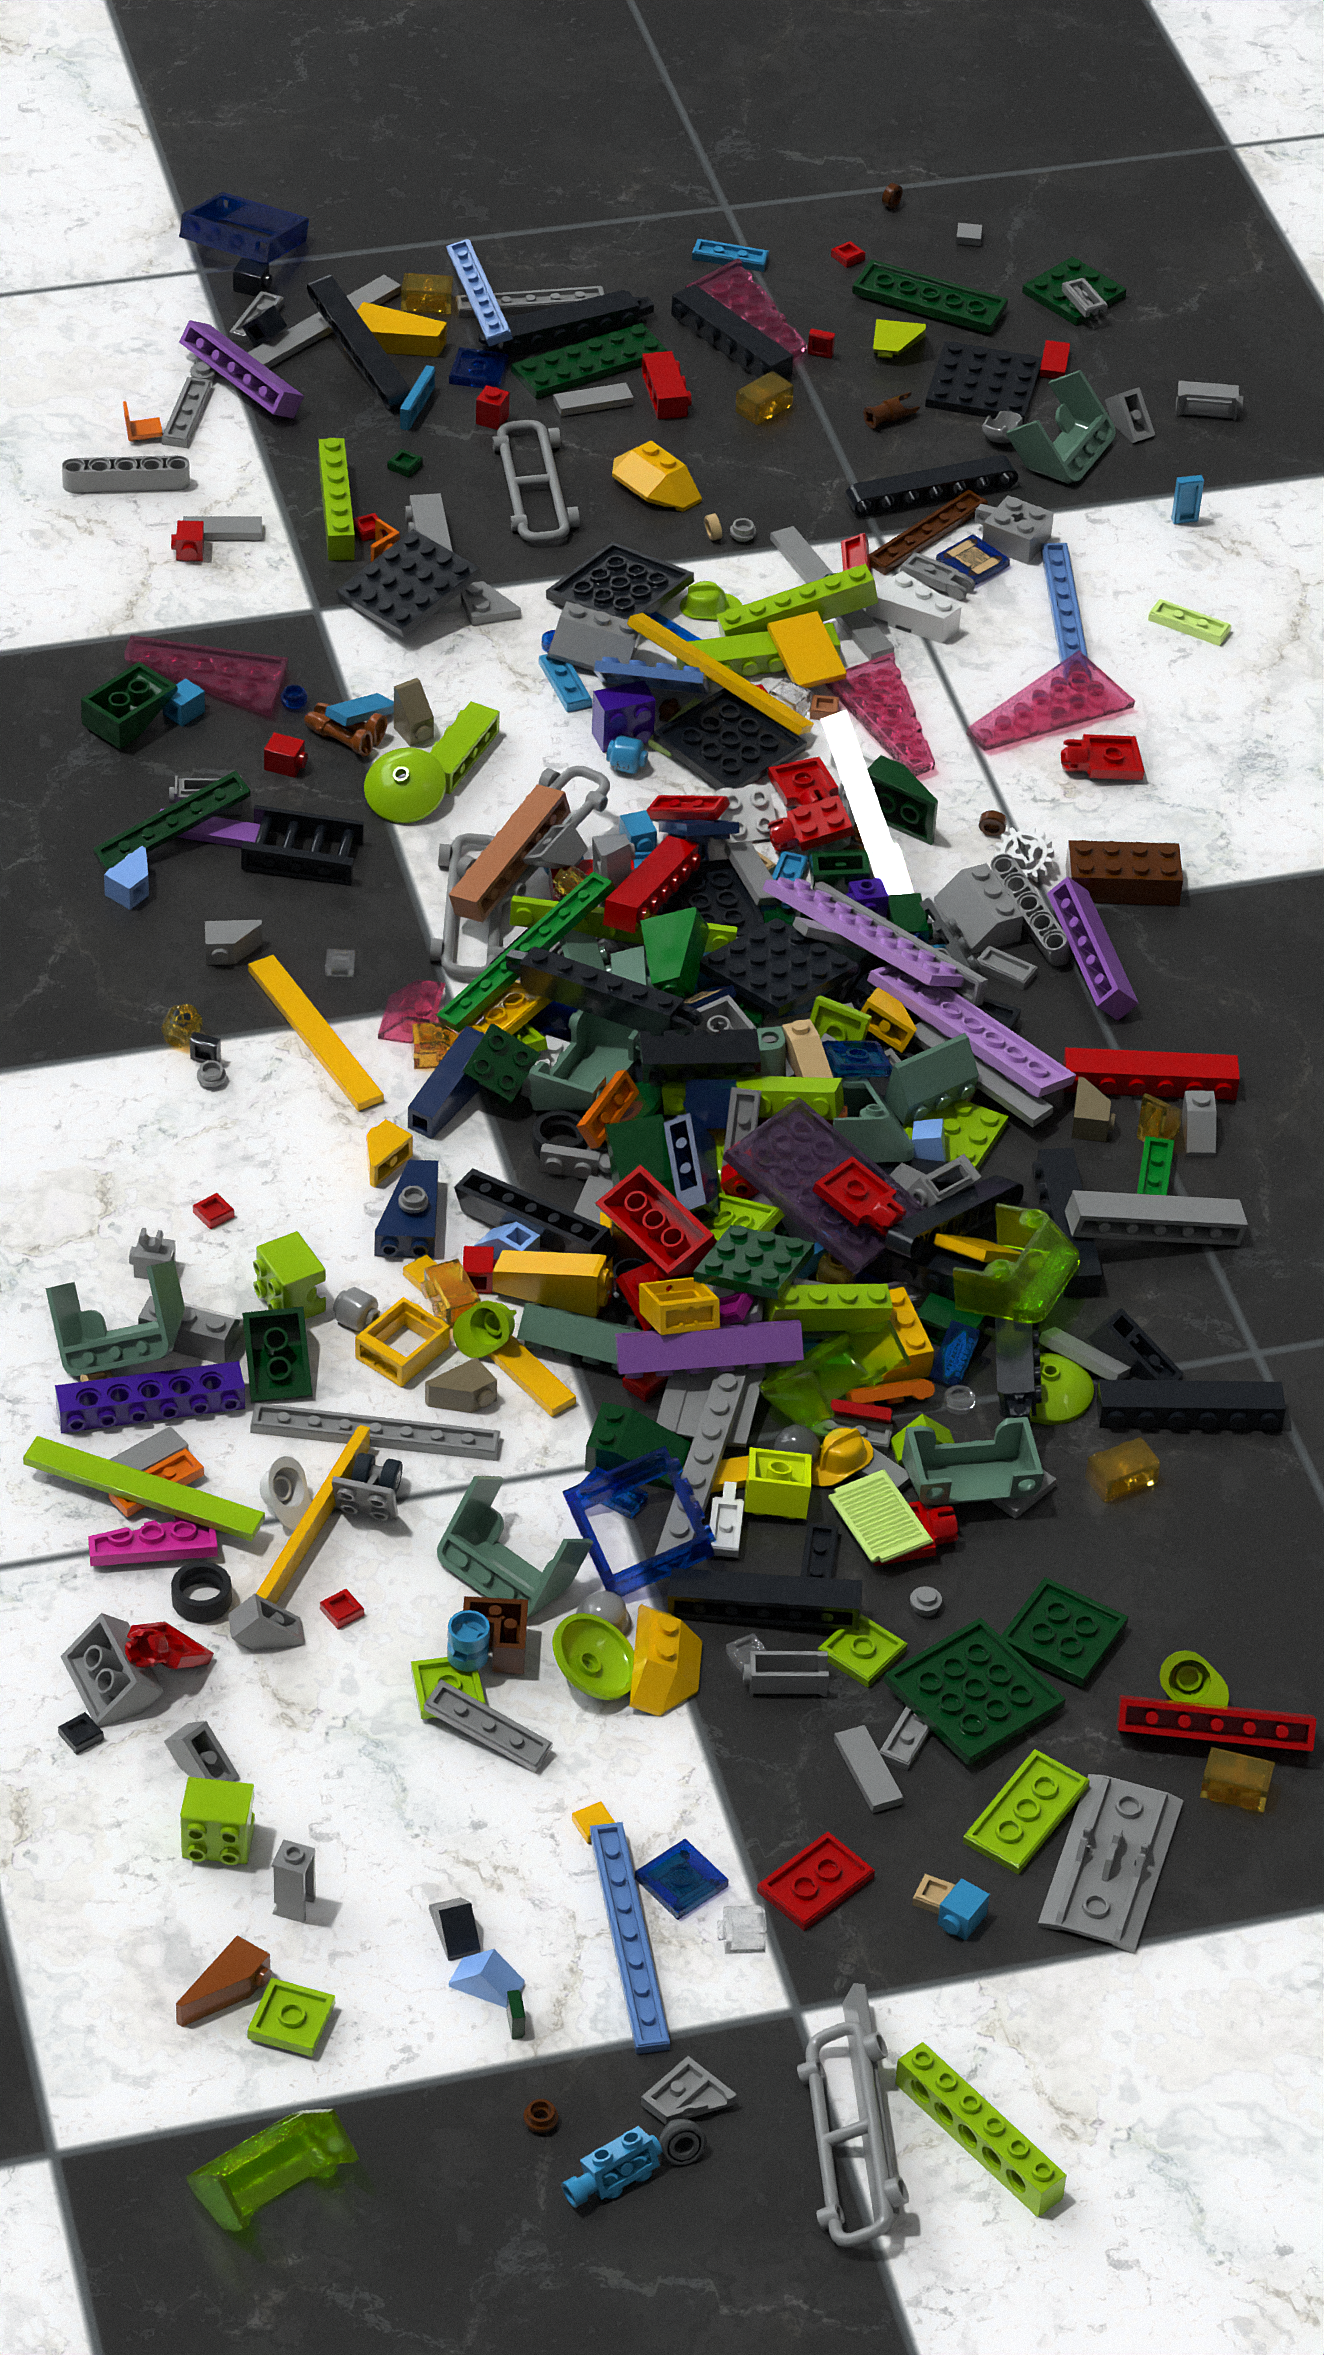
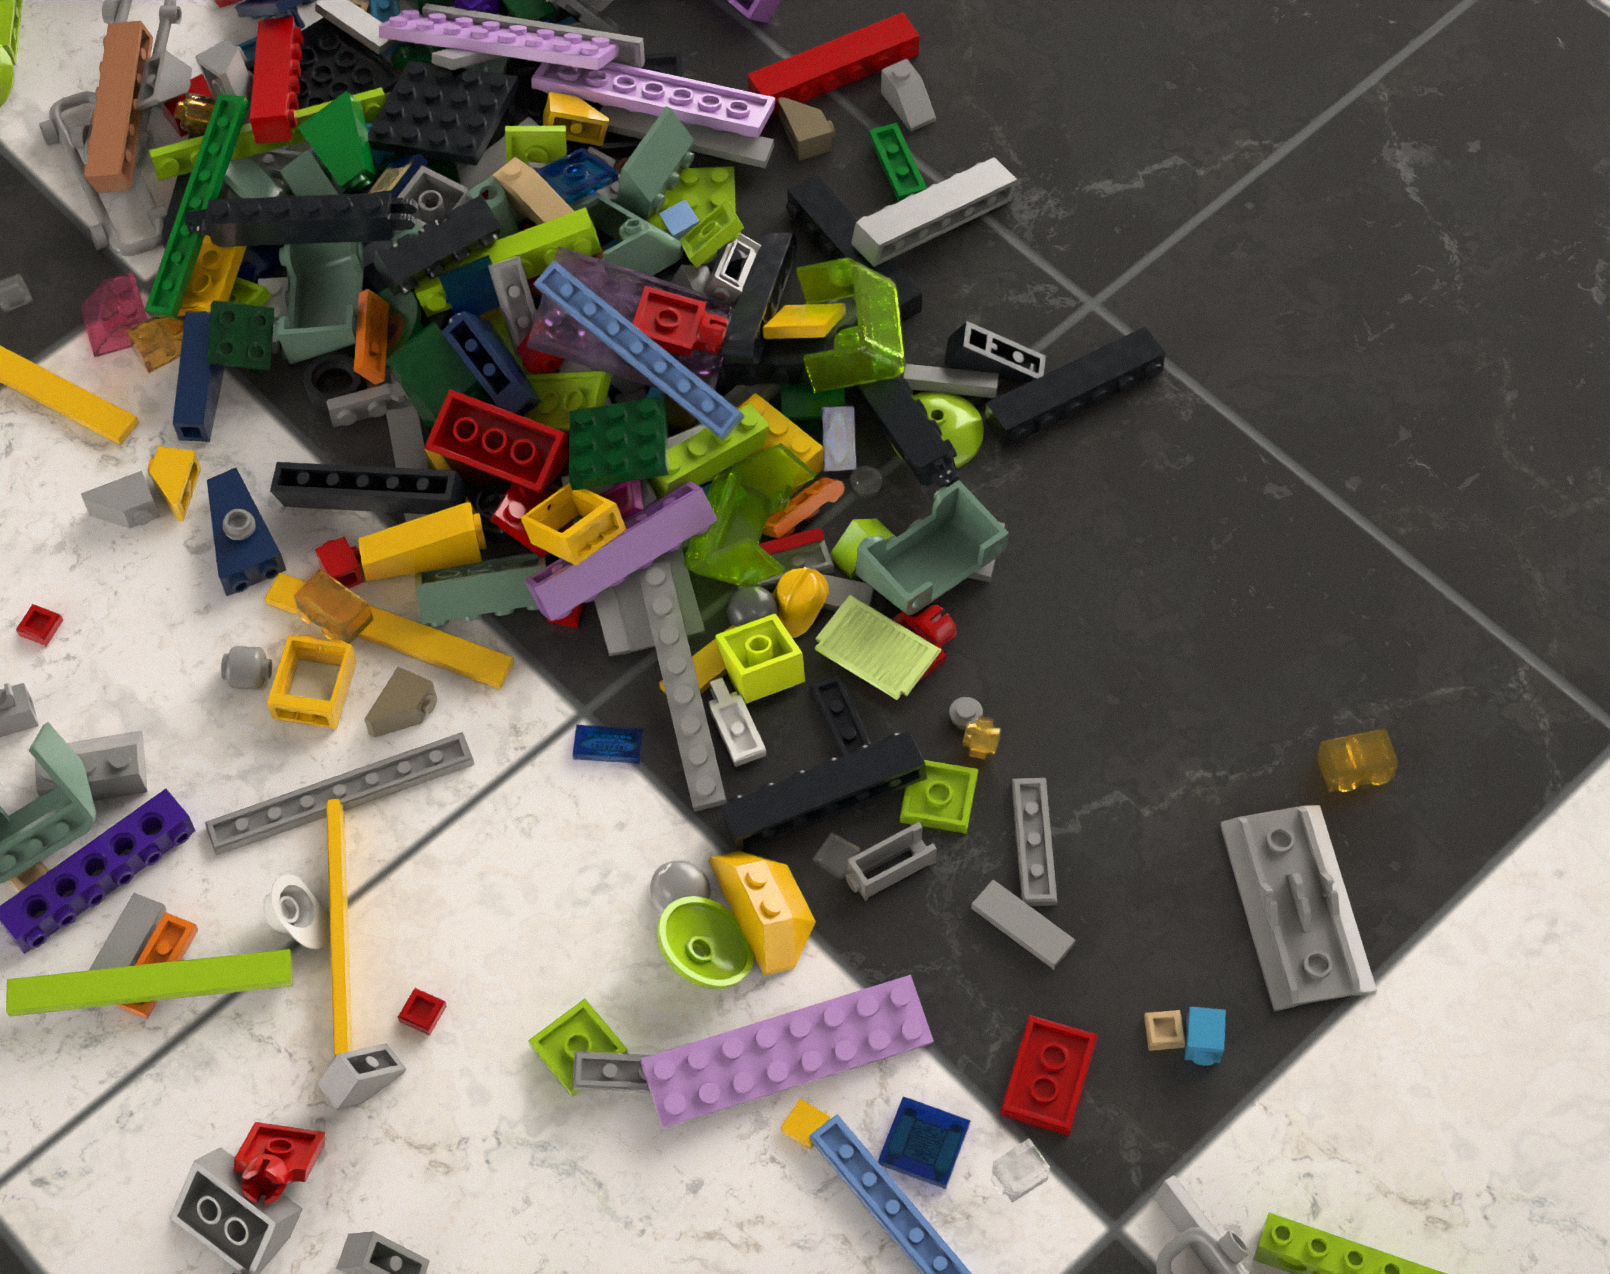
camera: 25 degrees left, 15 degrees up
(153, 1543) = (191, 1037): dark pink wing -> none
(199, 1573) = (268, 1043): black tyre -> none
(277, 1354) = (198, 760): dark green slope -> none
(288, 1275) = (164, 669): lime piece -> none
(333, 1149) = (122, 501): none -> light grey slope
(363, 1492) = (362, 847): light grey plate -> none
(468, 1640) = (577, 993): dark azure wheel -> none
(476, 1556) = (547, 887): sand green windscreen -> none
(483, 1328) = (386, 630): lime piece -> none
(507, 1630) = (595, 954): reddish brown brick -> none
(511, 1237) = (354, 521): light blue slope -> none
(611, 1762) = (786, 1051): none -> lavender plate
(620, 1481) = (620, 729): clear blue window -> none
(624, 1435) = (604, 686): dark green slope -> none
(639, 830) = (220, 25): dark azure brick -> none
(813, 1199) = (639, 350): none -> medium blue tile
(925, 1620) = (981, 737): none -> clear yellow gear
(950, 1146) = (711, 234): none -> lime plate
(974, 1691) = (1070, 790): dark green plate -> none
(1006, 967) = (639, 14): light grey tile -> none
(1026, 1811) = (1192, 894): lime tile -> none
(1064, 1631) = (1109, 682): dark green plate -> none
(1122, 1469) = (1057, 484): clear yellow brick -> none
(1158, 1118) = (871, 109): clear yellow slope -> none
(1192, 1679) = (1262, 681): lime piece -> none
(1216, 1723) = (1305, 712): red brick -> none

